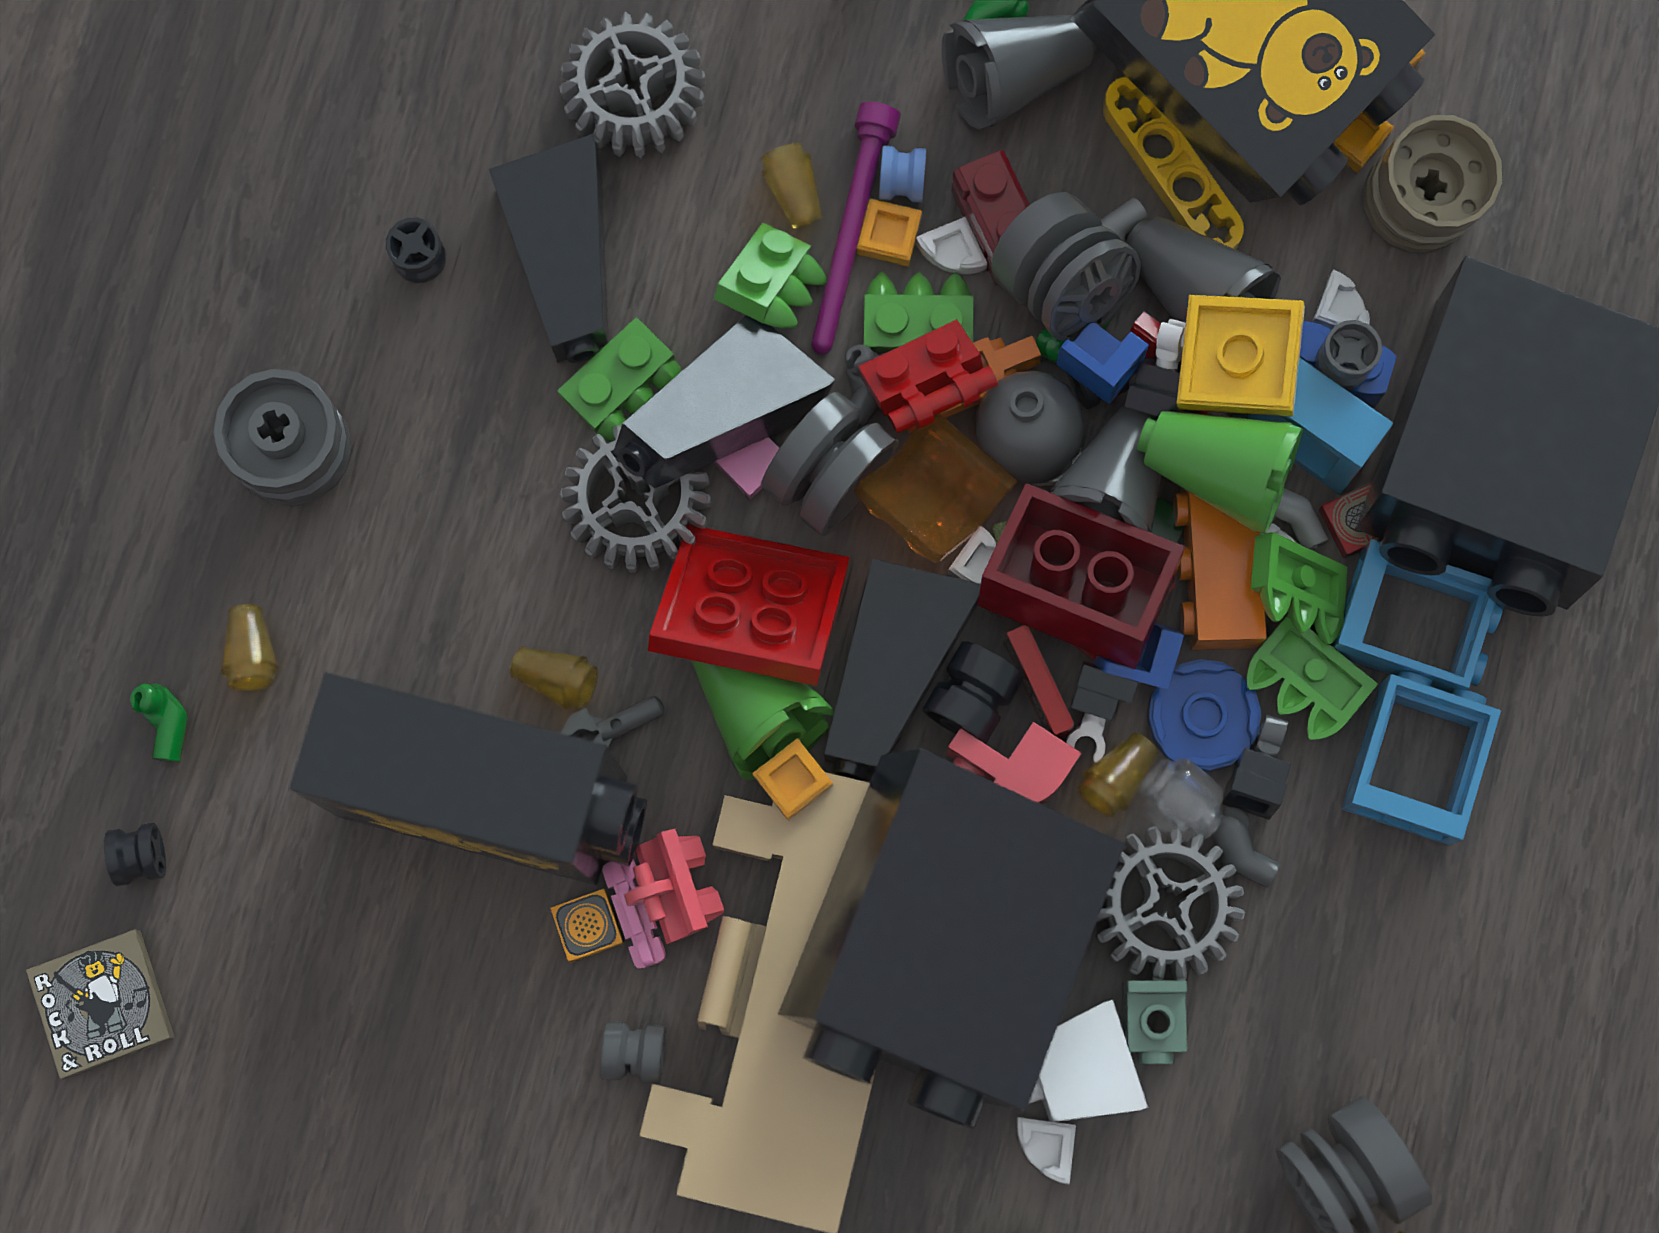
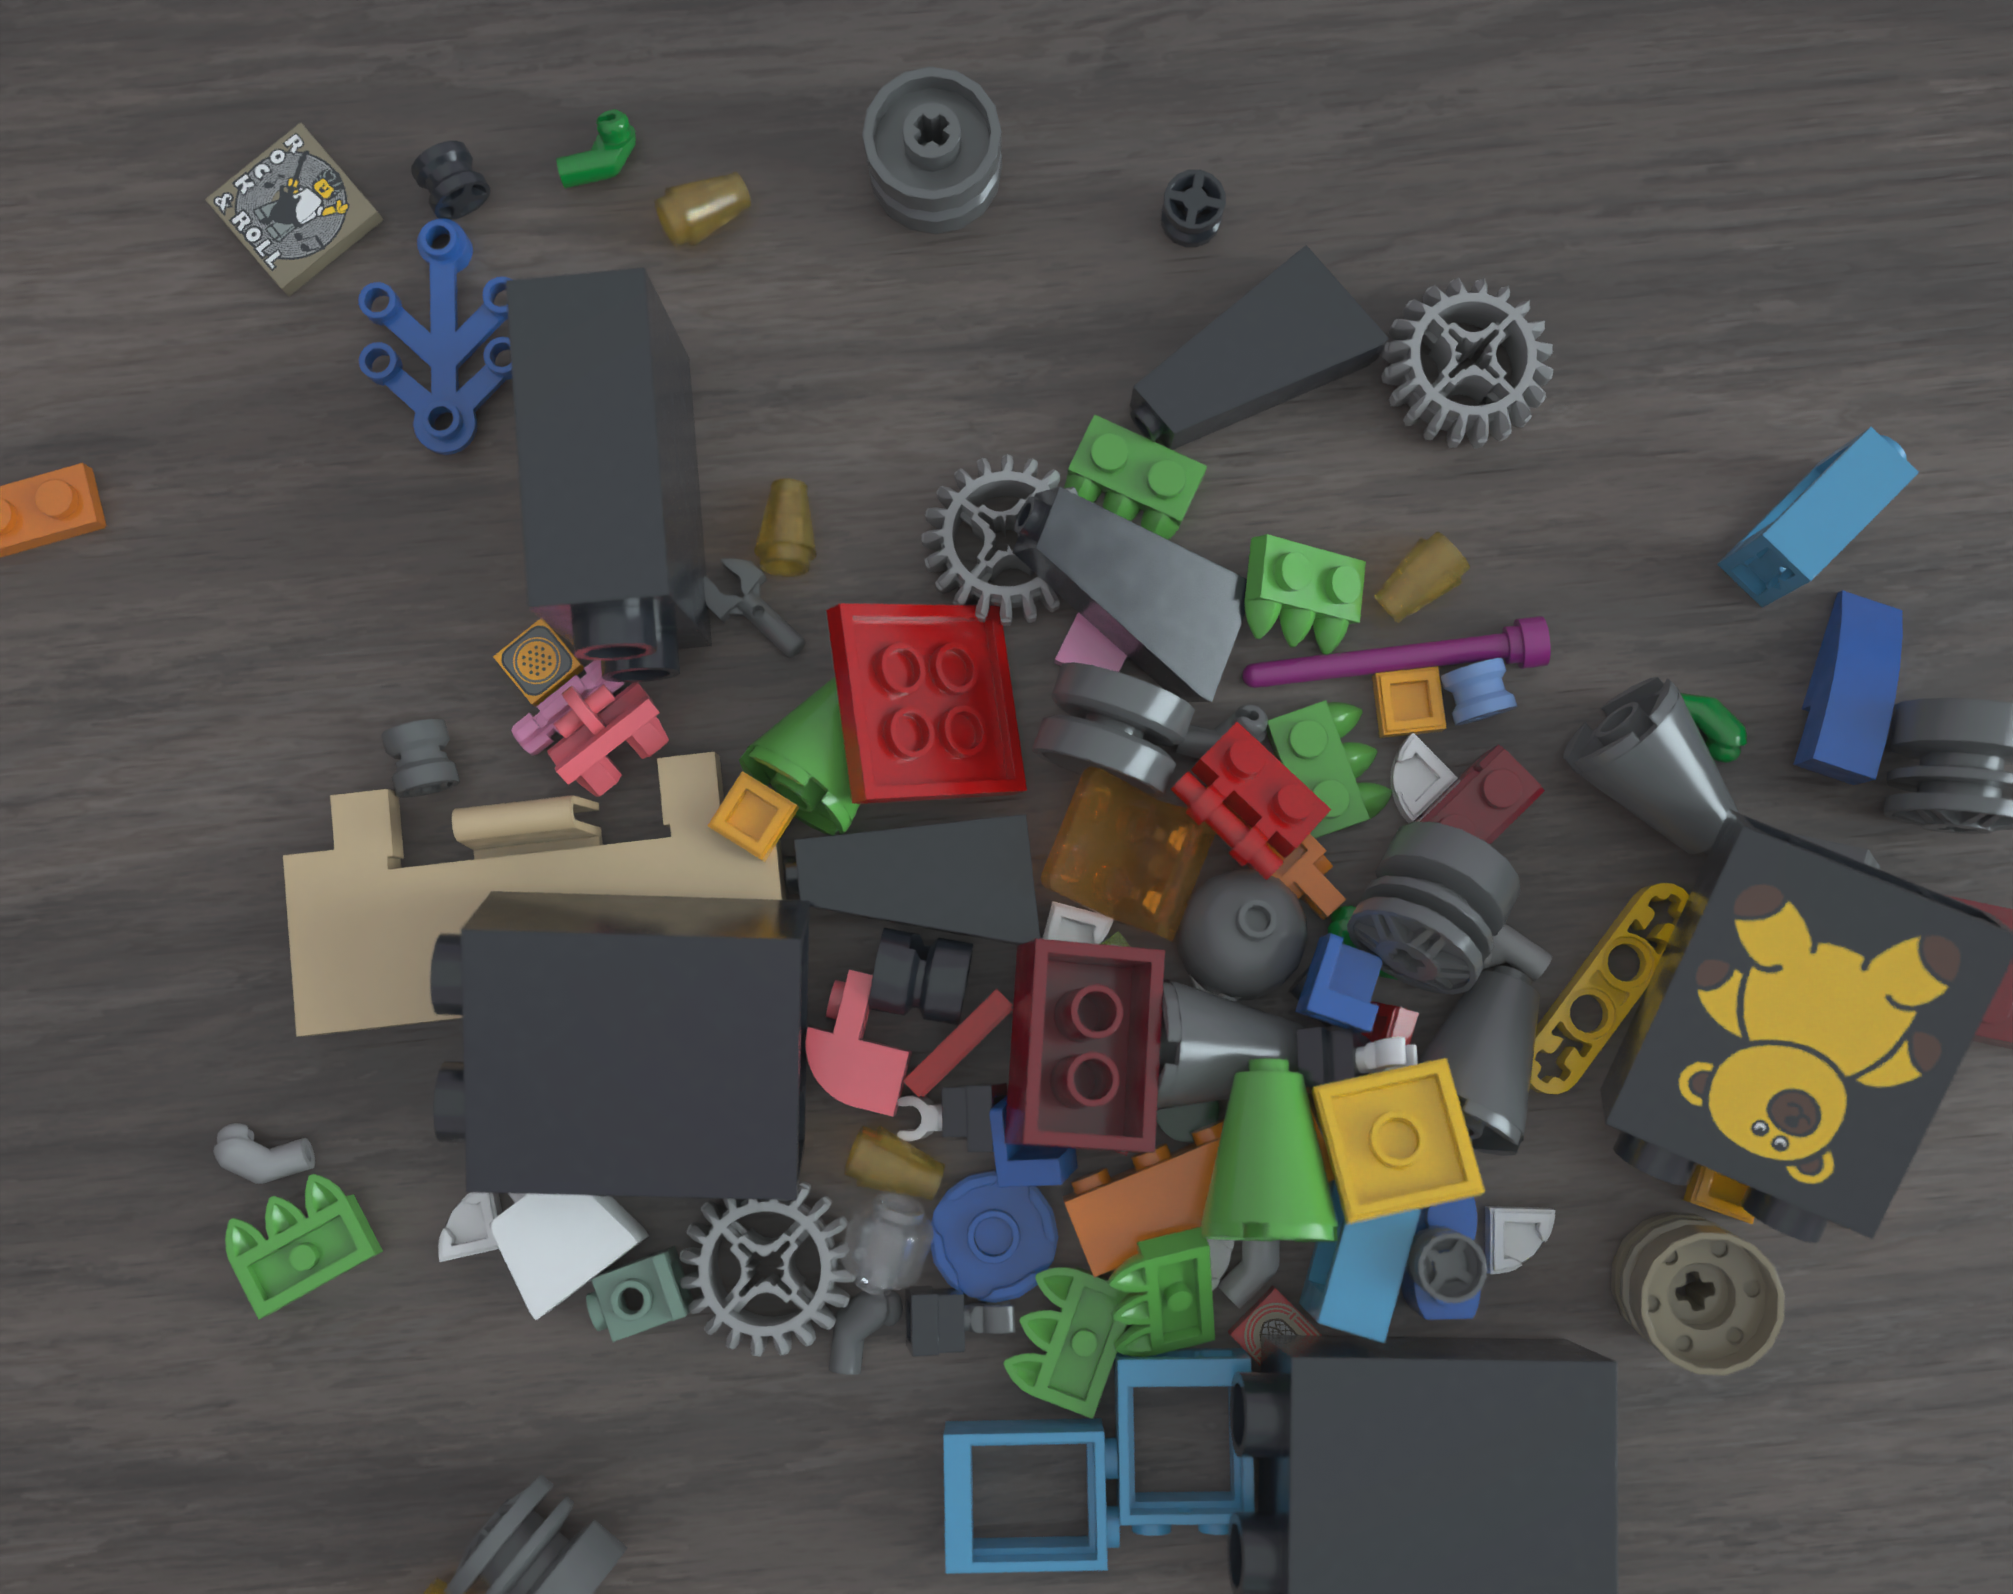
camera: 70 degrees right, 5 degrees up
(279, 913) = (444, 347): none -> blue plant

